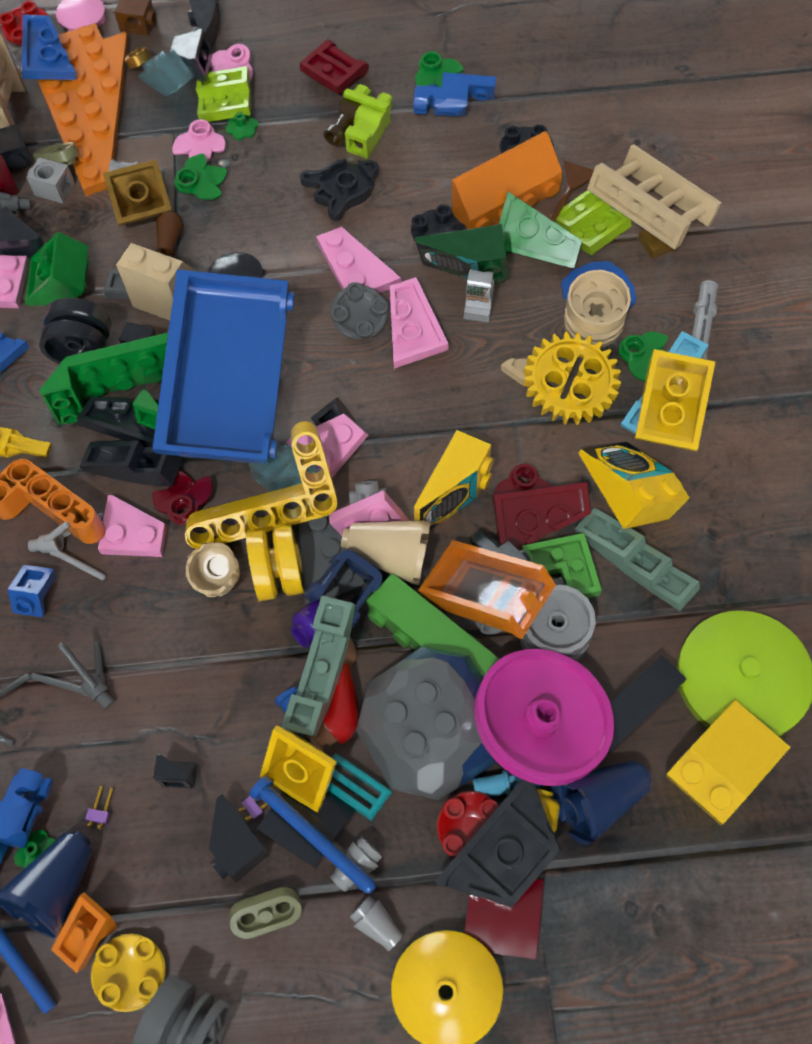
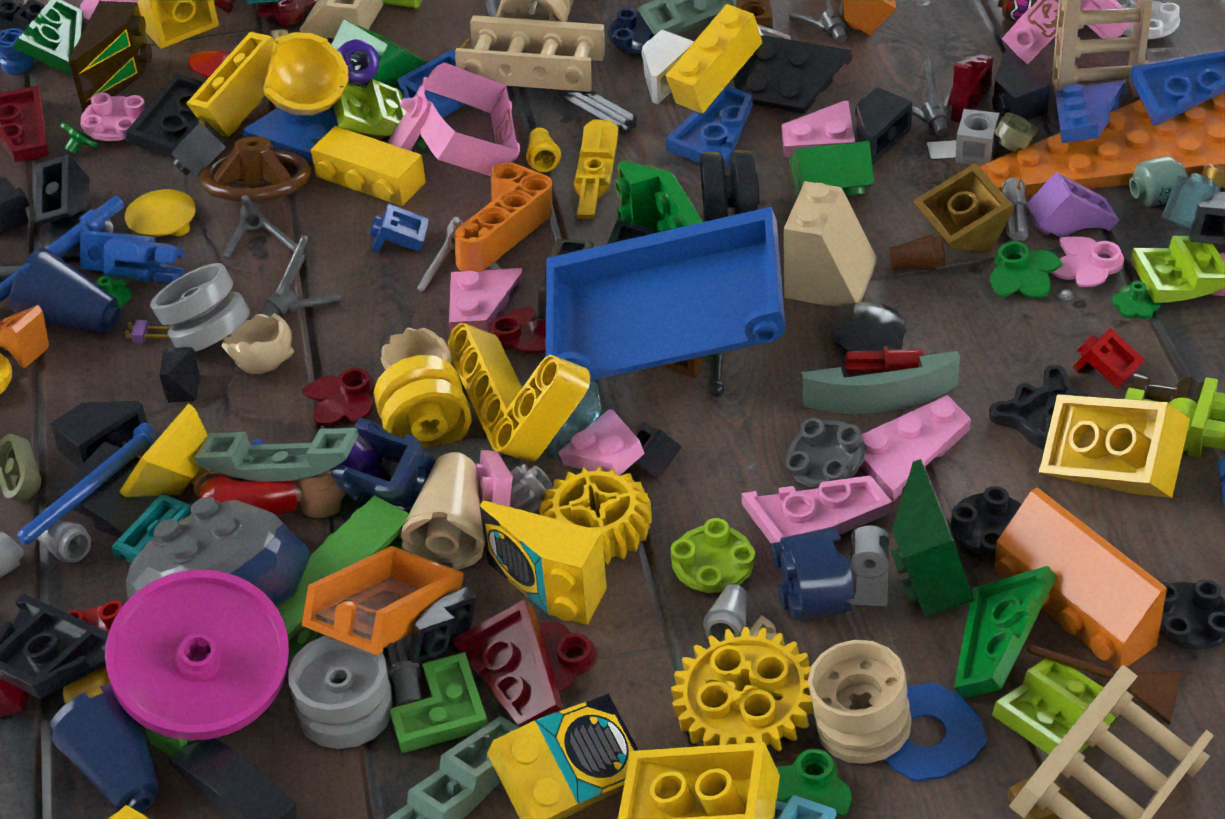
camera: 85 degrees right, 20 degrees down
(45, 207) = (942, 149): none -> white sticker
(47, 112) = (1086, 109): none -> blue wing
(109, 747) = (200, 307): none -> light grey wheel
(132, 89) = (1155, 180): none -> sand green head
(150, 140) = (1069, 207): none -> medium lavender arch
(157, 699) = (260, 344): none -> tan hair
(232, 641) = (341, 396): none -> dark red plate
(273, 266) = (881, 361): none -> red axle
(298, 144) = (1110, 357): none -> red bracket
(303, 293) = (880, 392): none -> sand green slope
(392, 149) = (1116, 444): none -> yellow slope
(420, 449) = (605, 504): none -> yellow gear
(445, 388) = (712, 557): none -> lime dish
(486, 322) = (813, 575): none -> dark blue brick
(502, 383) = (727, 613): none -> light grey cone

